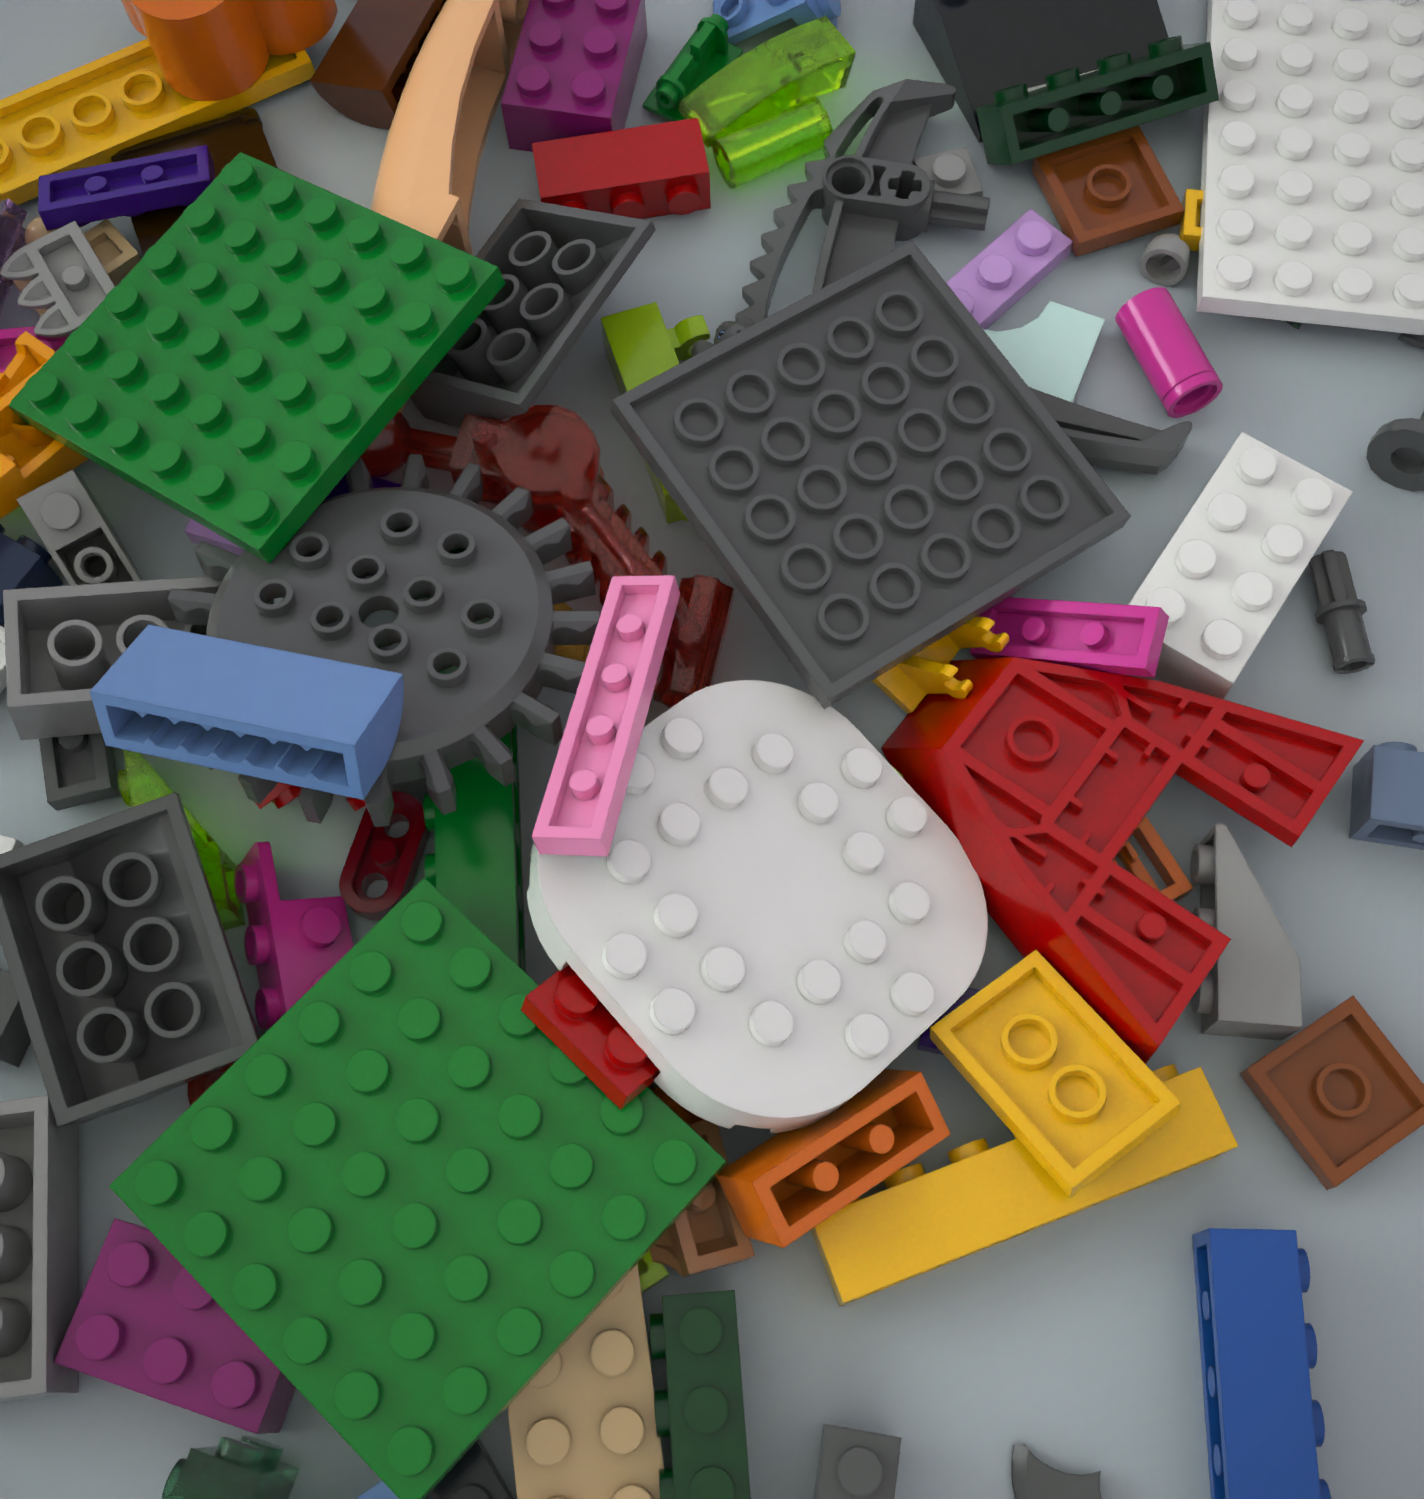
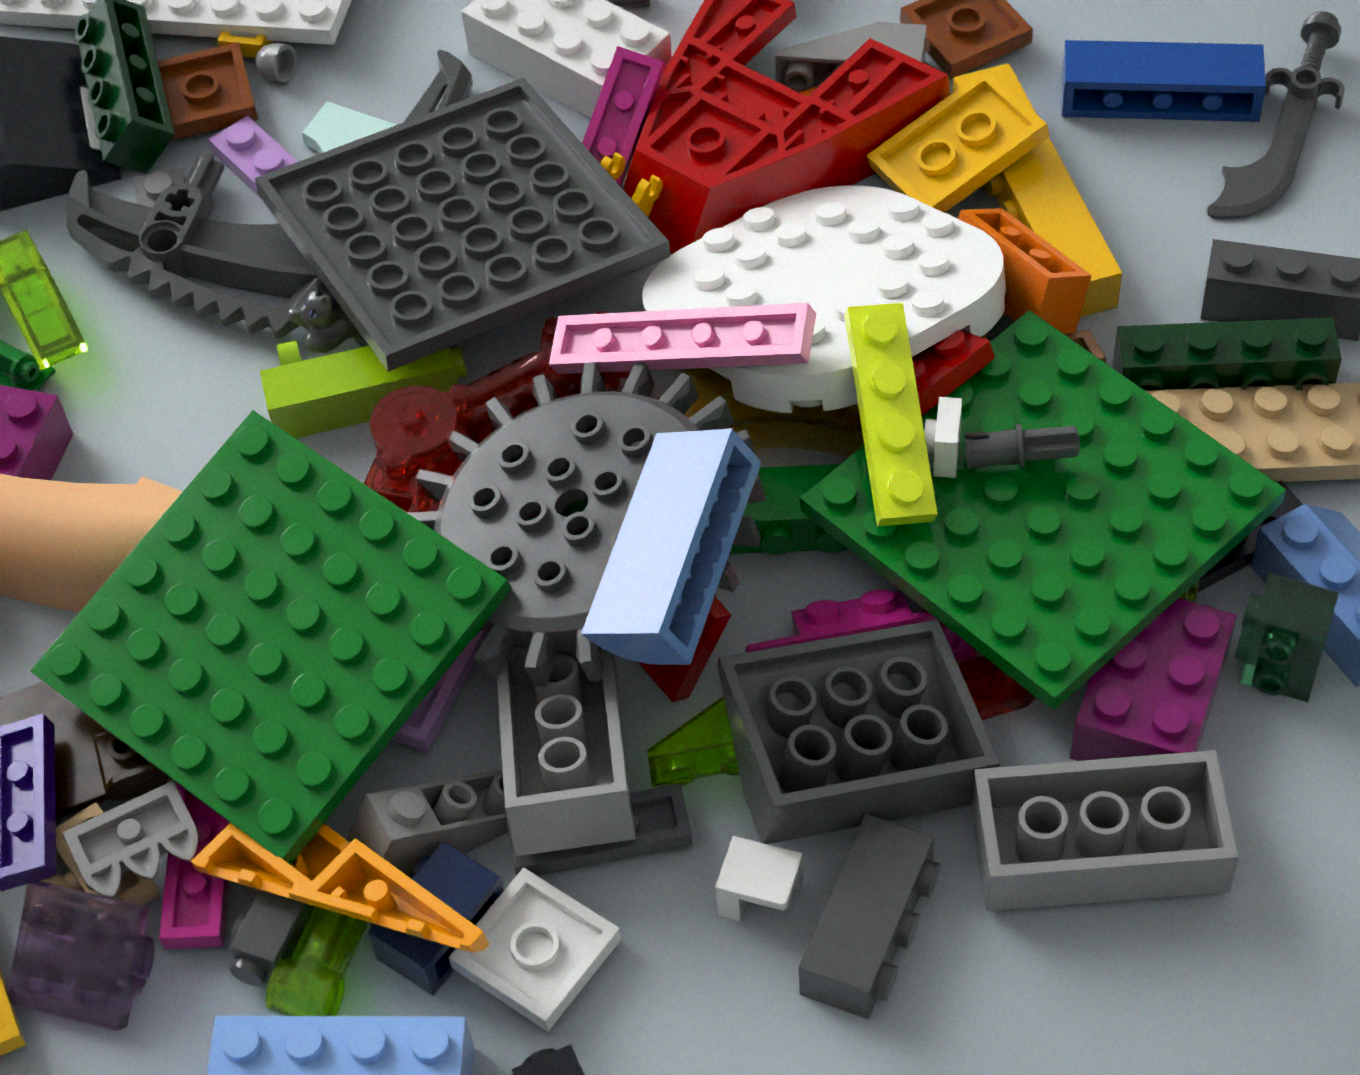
camera: 85 degrees left, 15 degrees down
(385, 858) = (763, 576): dark red plate -> none
(454, 1141) = (1020, 446): none -> dark grey axle
(464, 1039) = (943, 437): none -> white plate
(485, 963) = (890, 415): none -> neon yellow plate
(557, 277) = (229, 382): dark grey slope -> none
(627, 170) = (105, 410): red brick -> none
(772, 142) = (95, 305): clear neon green piece -> none
(1168, 352) = (367, 64): dark pink pin -> none

